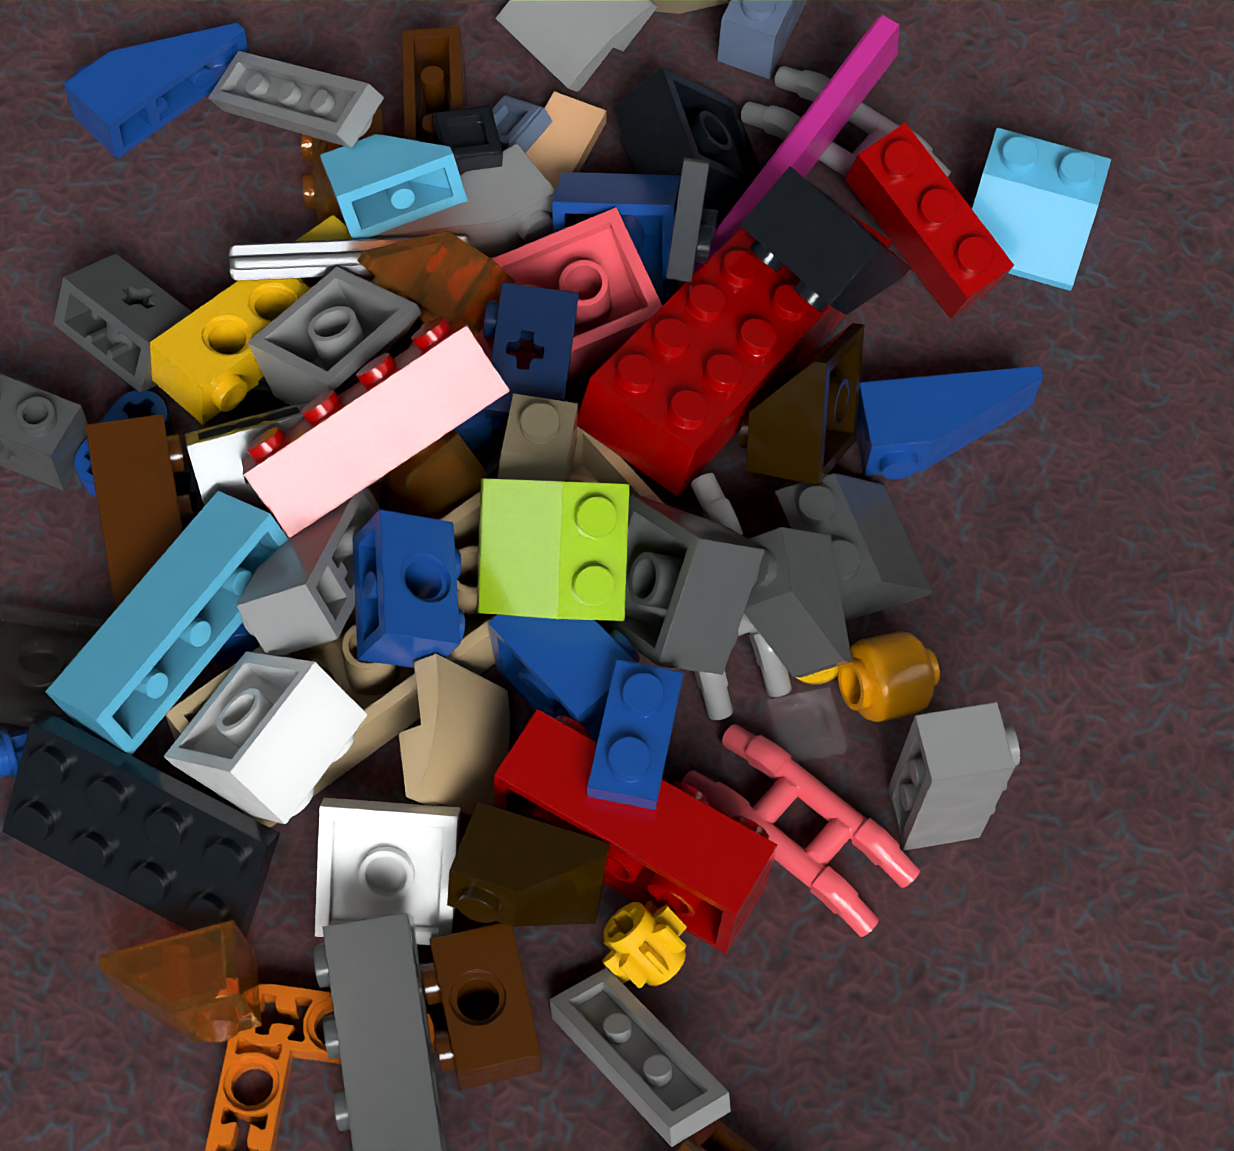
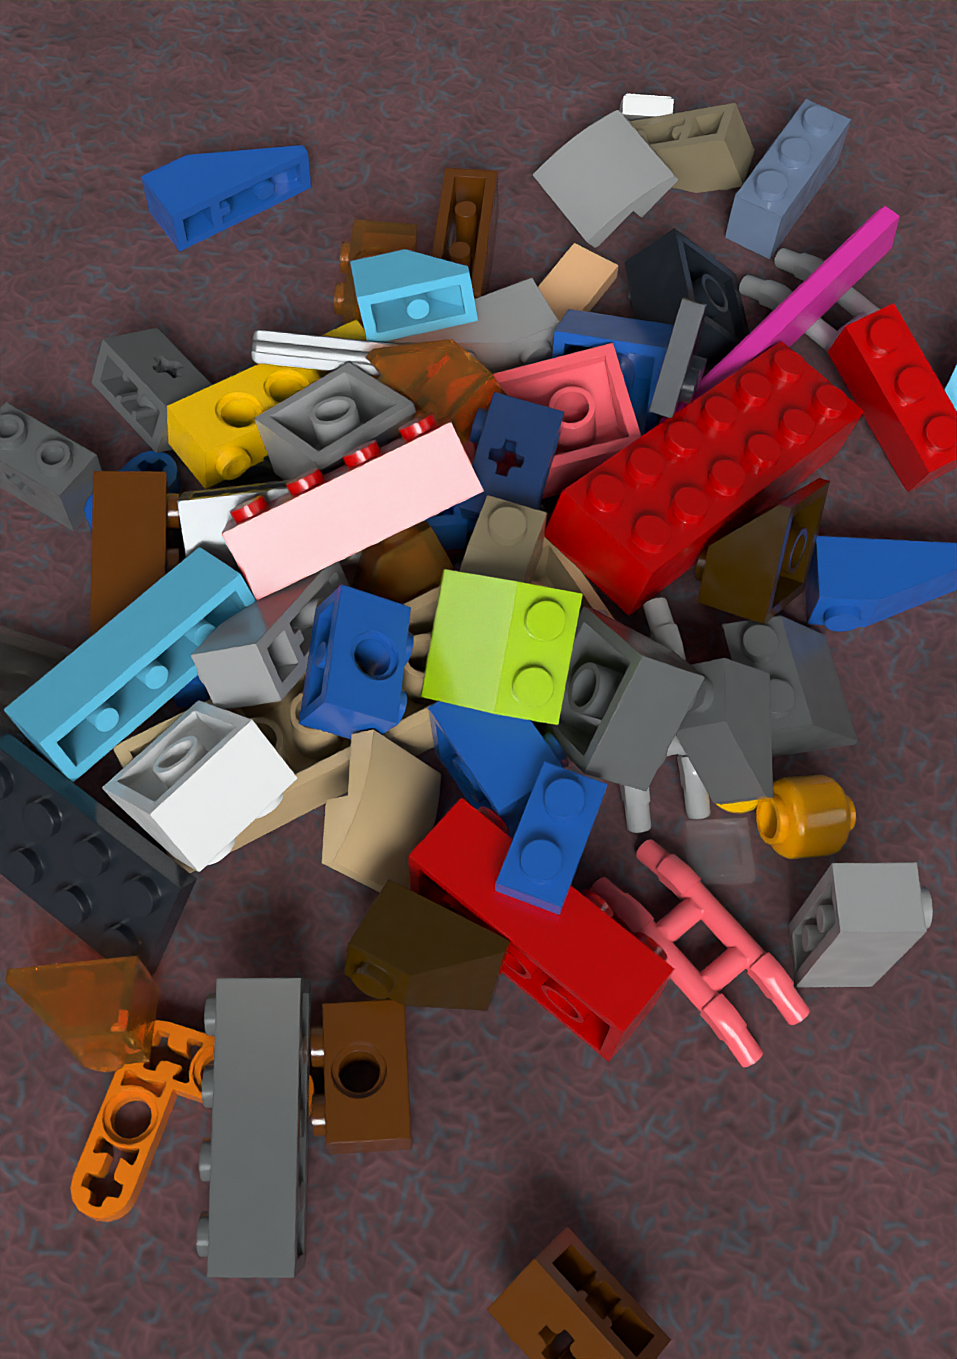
camera: 10 degrees right, 0 degrees up
(297, 98) = (343, 214): light grey plate -> none
(386, 863) = (294, 924): white plate -> none
(471, 137) = (490, 265): black tile -> none
(519, 122) = (528, 262): sand blue tile -> none
(640, 1056) = (508, 1158): light grey plate -> none
(644, 944) = (530, 1041): yellow gear -> none
(821, 245) = (801, 400): black slope -> none

